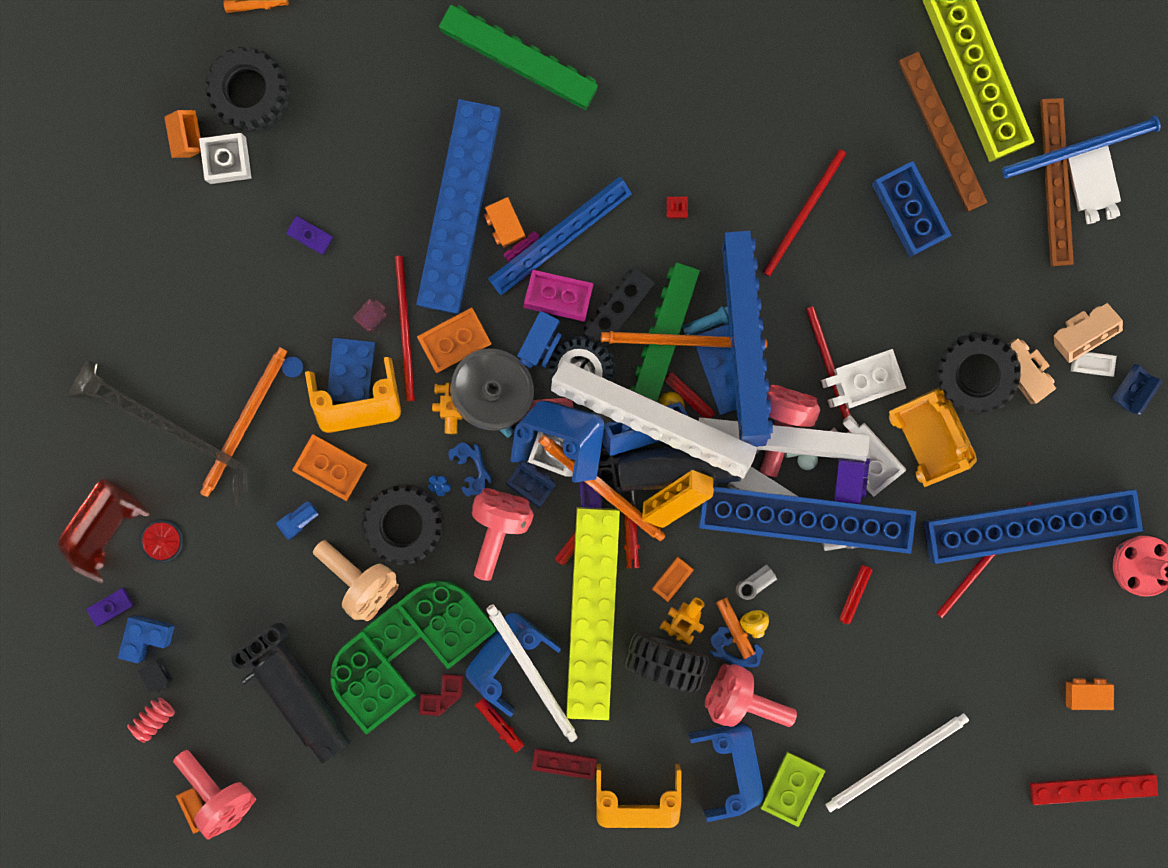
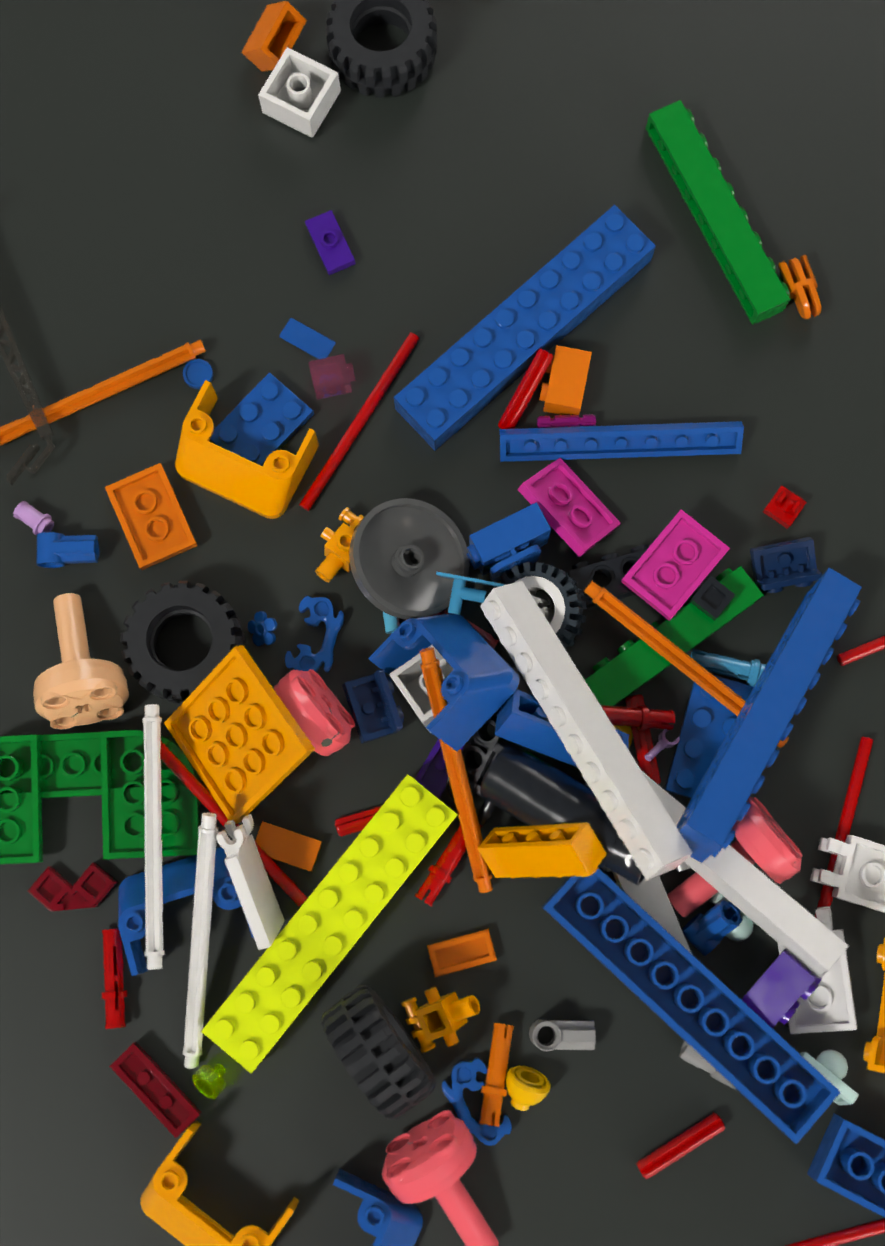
camera: 35 degrees right, 10 degrees down
(265, 515) = (33, 518): none -> lavender pin
(339, 302) = (307, 339): none -> blue sticker
(454, 340) = (407, 471): orange plate -> none
(467, 638) = (153, 839): none -> white piece
(472, 554) = (238, 735): none -> light orange plate
(486, 245) = (525, 389): none -> red axle
(498, 601) = (209, 802): none -> red piece
(534, 389) = (461, 593): none -> dark azure shield
(536, 624) = (251, 881): none -> white tile
(539, 591) = (288, 846): none -> orange tile
(589, 739) = (210, 1080): none -> clear neon green tile
(599, 69) = (801, 286): none -> orange arm
(640, 289) = (675, 564): none -> dark pink plate
(673, 293) = (712, 598): none -> black plate
(679, 387) = (640, 717): none -> red pin
(700, 242) = (785, 565): none -> dark blue bracket
(701, 392) = (661, 745): none -> lavender hand
(794, 472) = (709, 929): none -> blue piece
(906, 500) = (834, 1069): none -> light aqua tile

